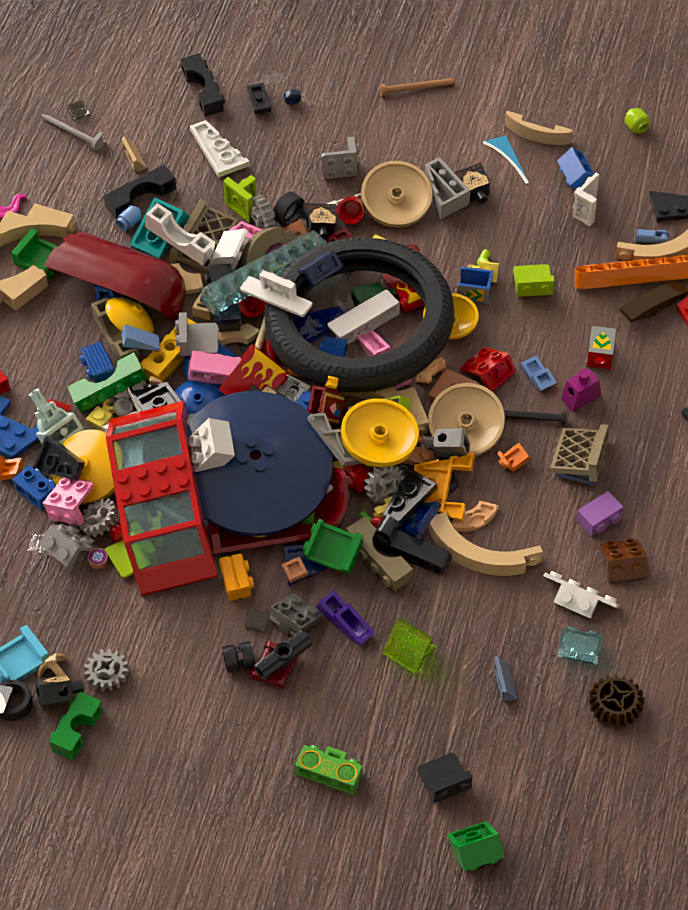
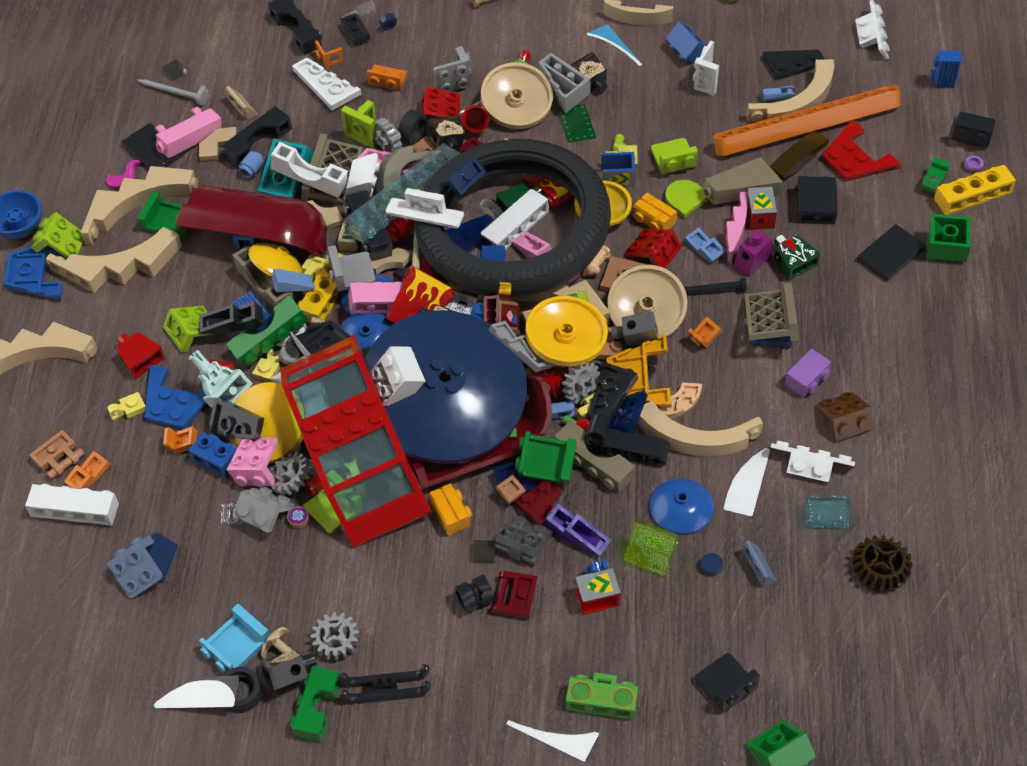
camera: 10 degrees left, 0 degrees up
(37, 361) = (183, 325): none -> lime bracket
(40, 184) = (143, 147): none -> black tile
(76, 176) = (187, 132): none -> bright pink brick
(77, 364) = (231, 319): none -> black slope
(94, 193) = (210, 145): none -> tan tile
(140, 722) = (385, 685): none -> black piece
(163, 327) = (313, 265): none -> light yellow plate
(224, 122) = (325, 57): none -> orange bracket
(275, 662) = (515, 592): black piece -> none
(278, 153) = (386, 77): none -> orange bracket
(293, 805) = (574, 745): none -> white sticker
(318, 584) = (539, 500): none -> dark red wing
(321, 189) = (439, 103): none -> red bracket
(349, 676) = (598, 591): none -> piece
(354, 656) = (597, 566): none -> blue plate
(359, 505) = (561, 409): none -> medium blue bar
(414, 157) = (524, 57): none -> red arm
(445, 623) = (678, 515): none -> blue dish
(449, 231) = (577, 123): none -> dark green sticker
(460, 672) = (711, 564): none -> dark blue tile
(498, 334) = (654, 213): none -> light orange brick
(513, 606) = (746, 485): none -> white sticker
(533, 323) = (685, 197): none -> lime tile
(572, 364) = (735, 228): none -> bright pink slope
(580, 318) = (727, 185): none -> dark tan slope
(621, 400) = (795, 256): none -> dark green torso
(657, 348) = (817, 200): none -> black panel

